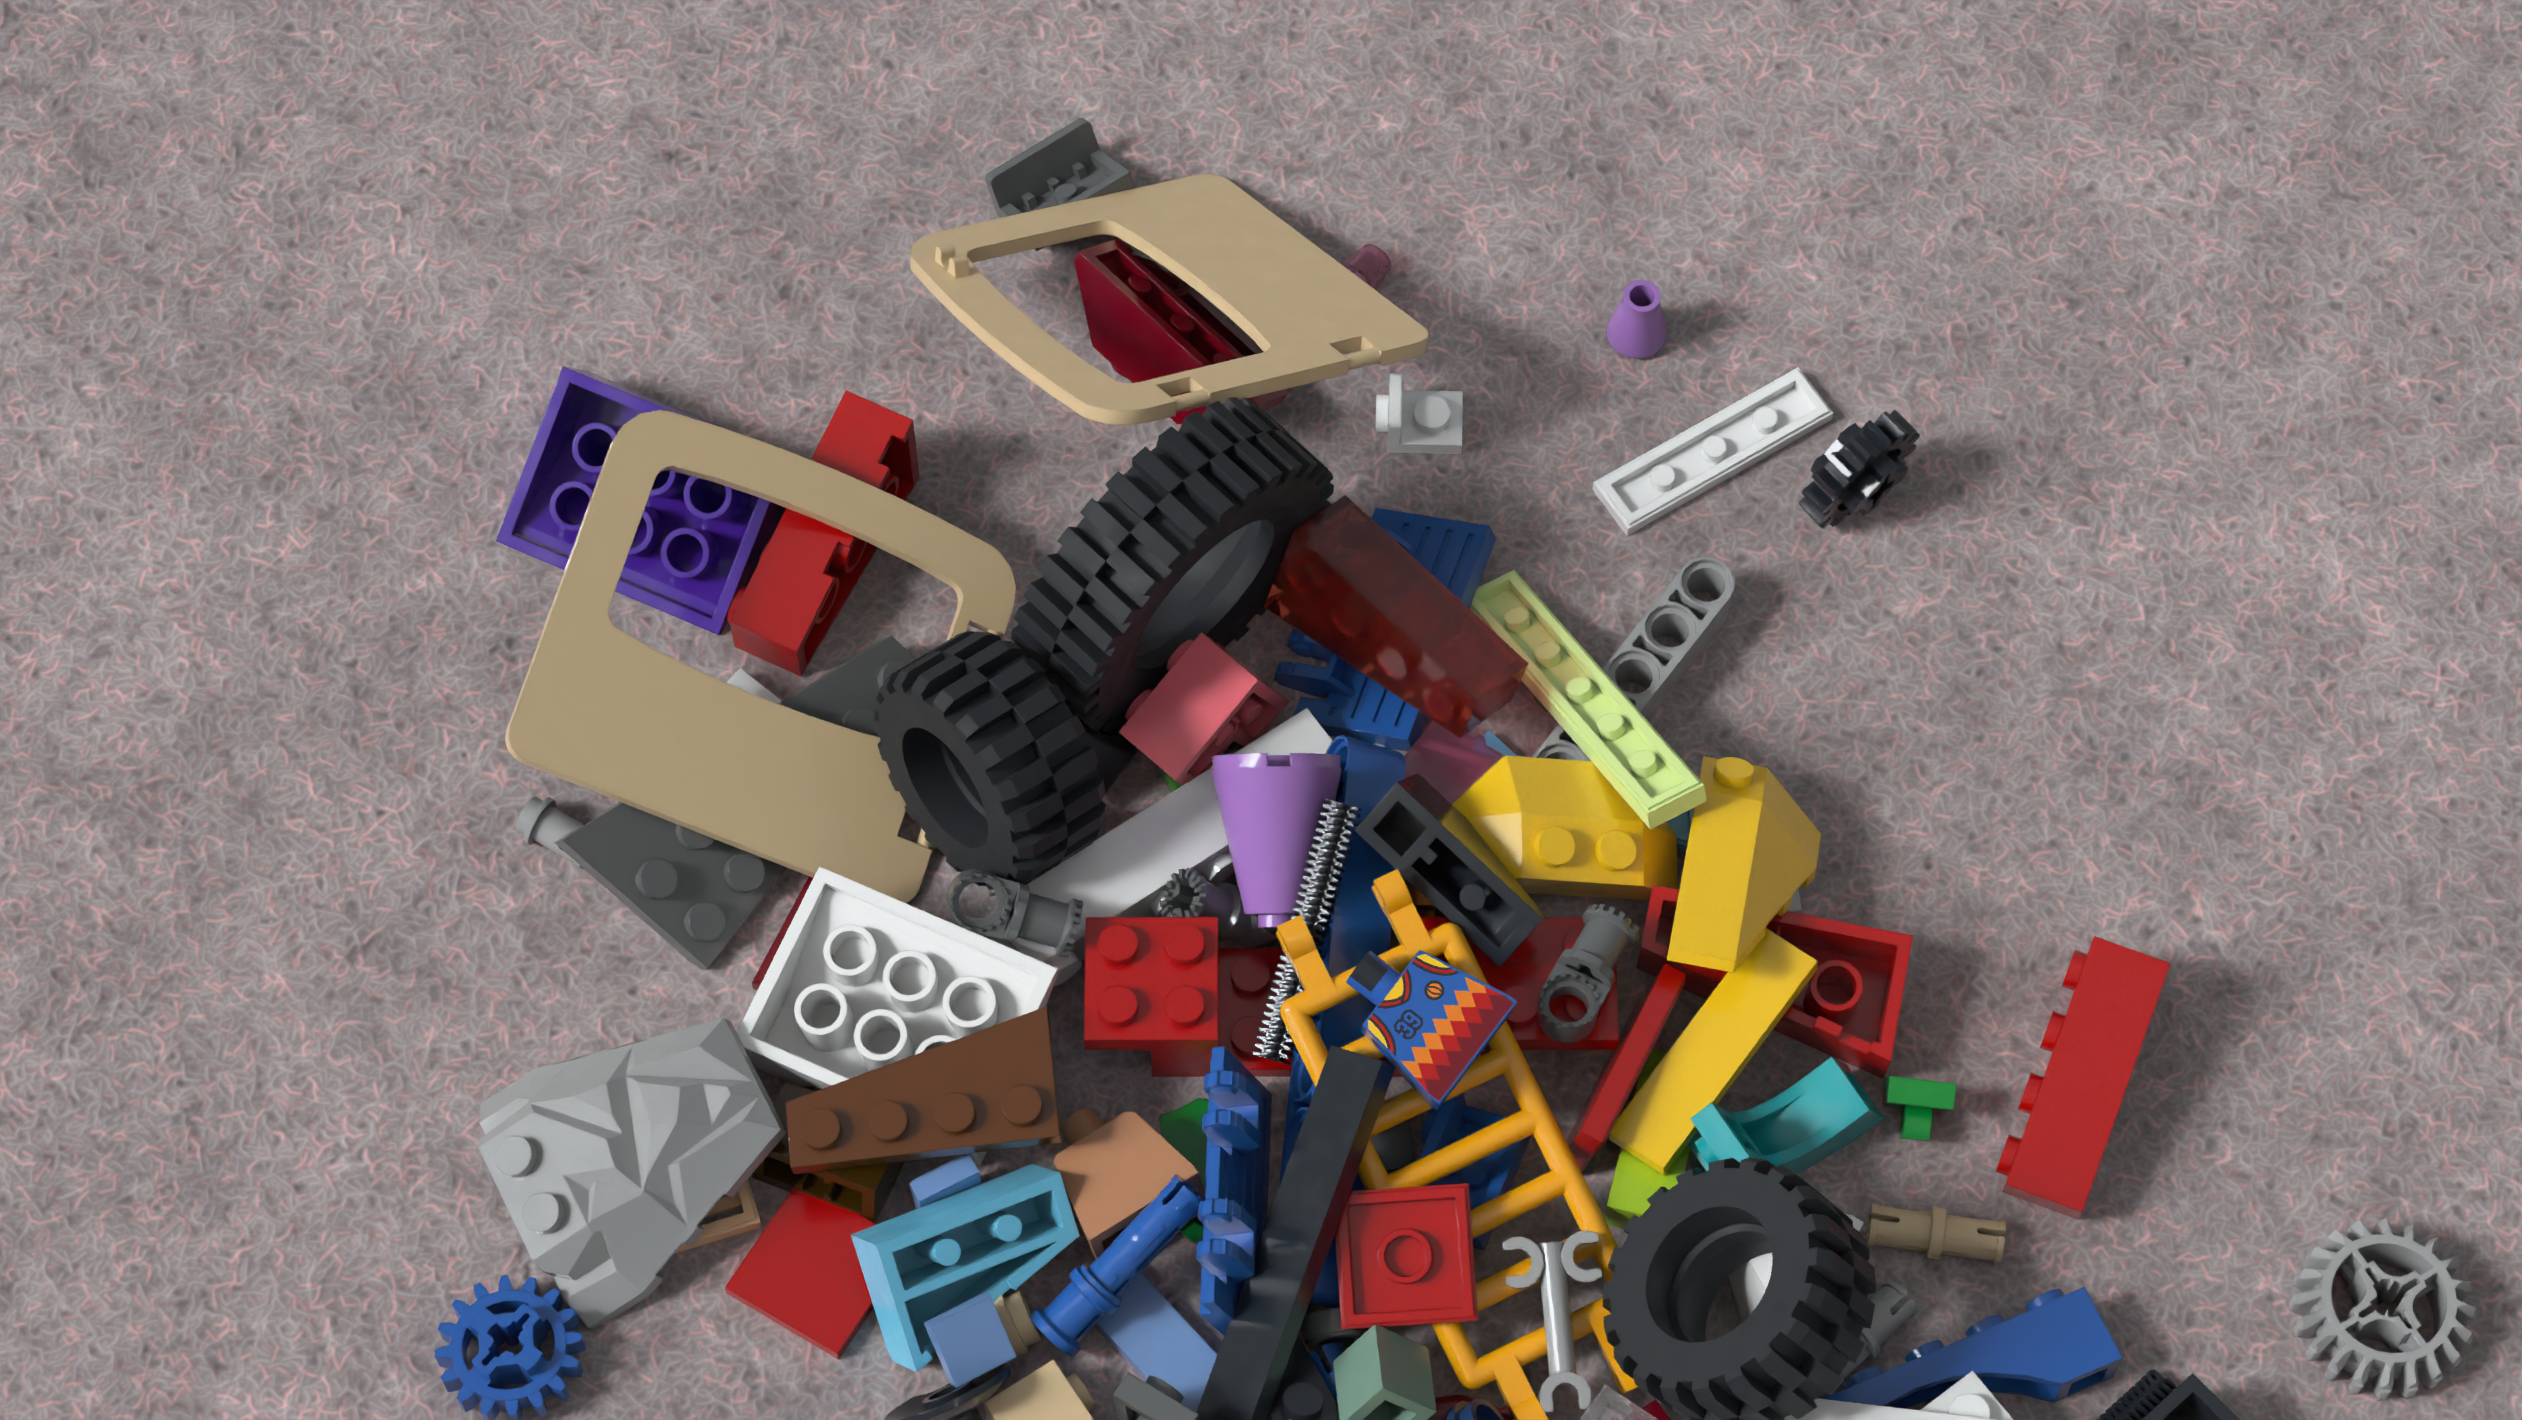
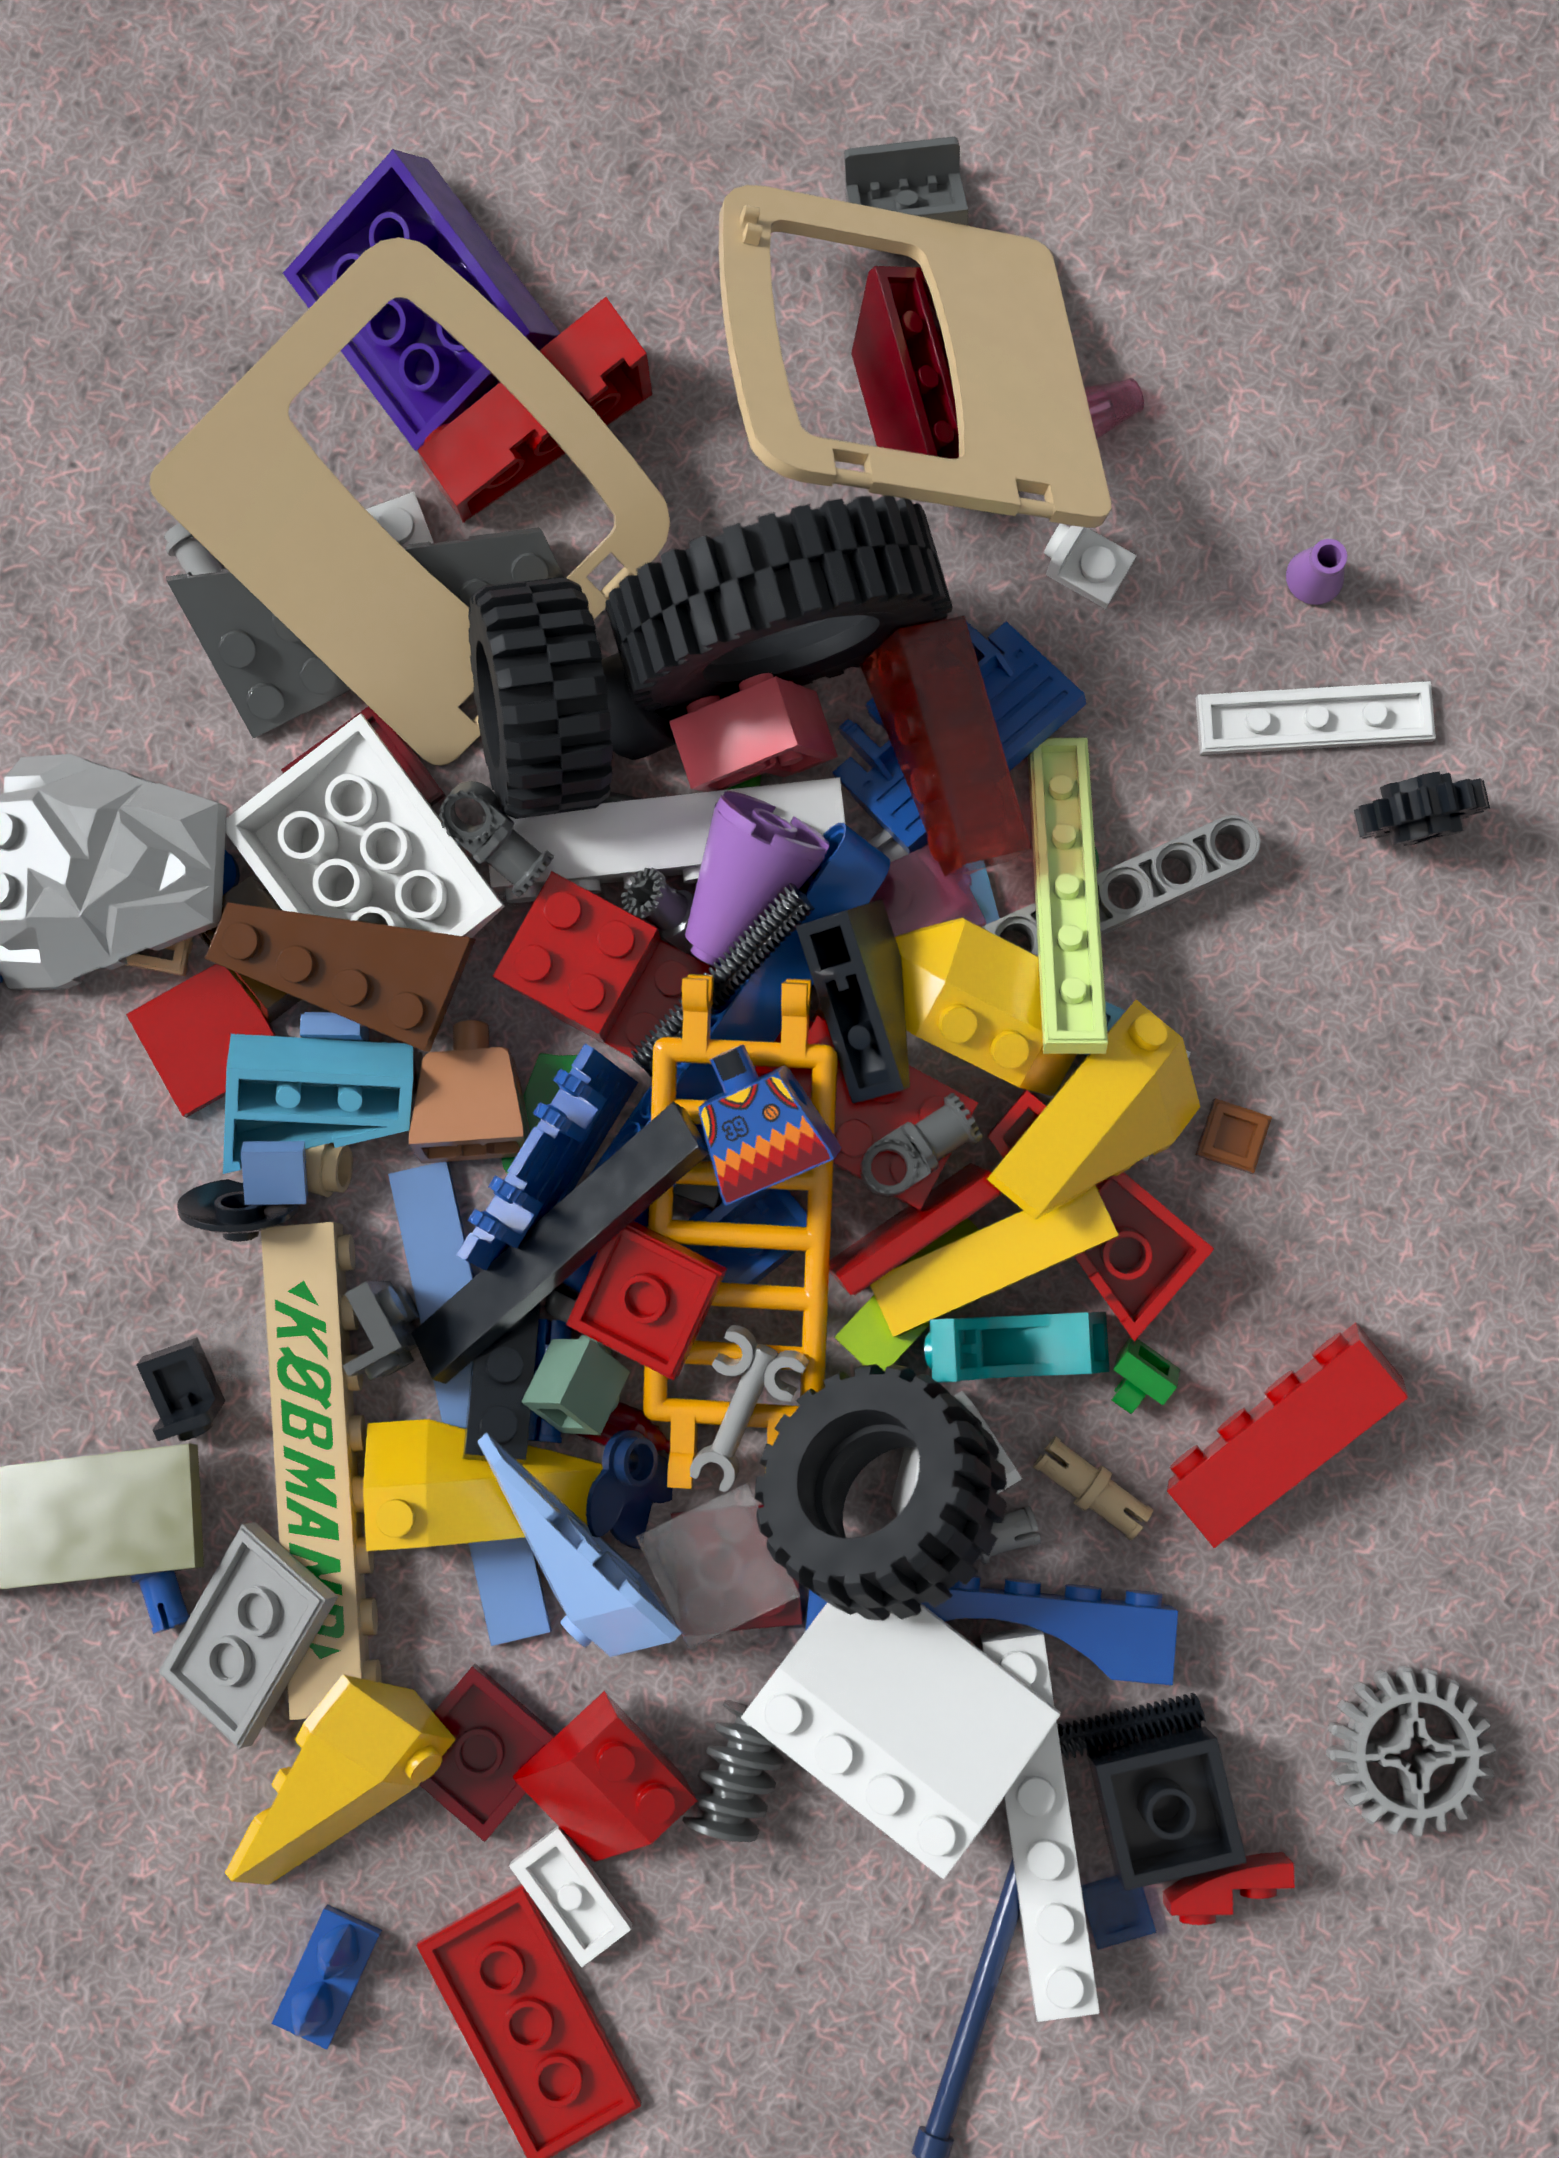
camera: 30 degrees right, 20 degrees up
(1098, 1287) = (401, 1180): blue pin -> none
(1867, 849) = (1233, 1136): none -> dark orange tile

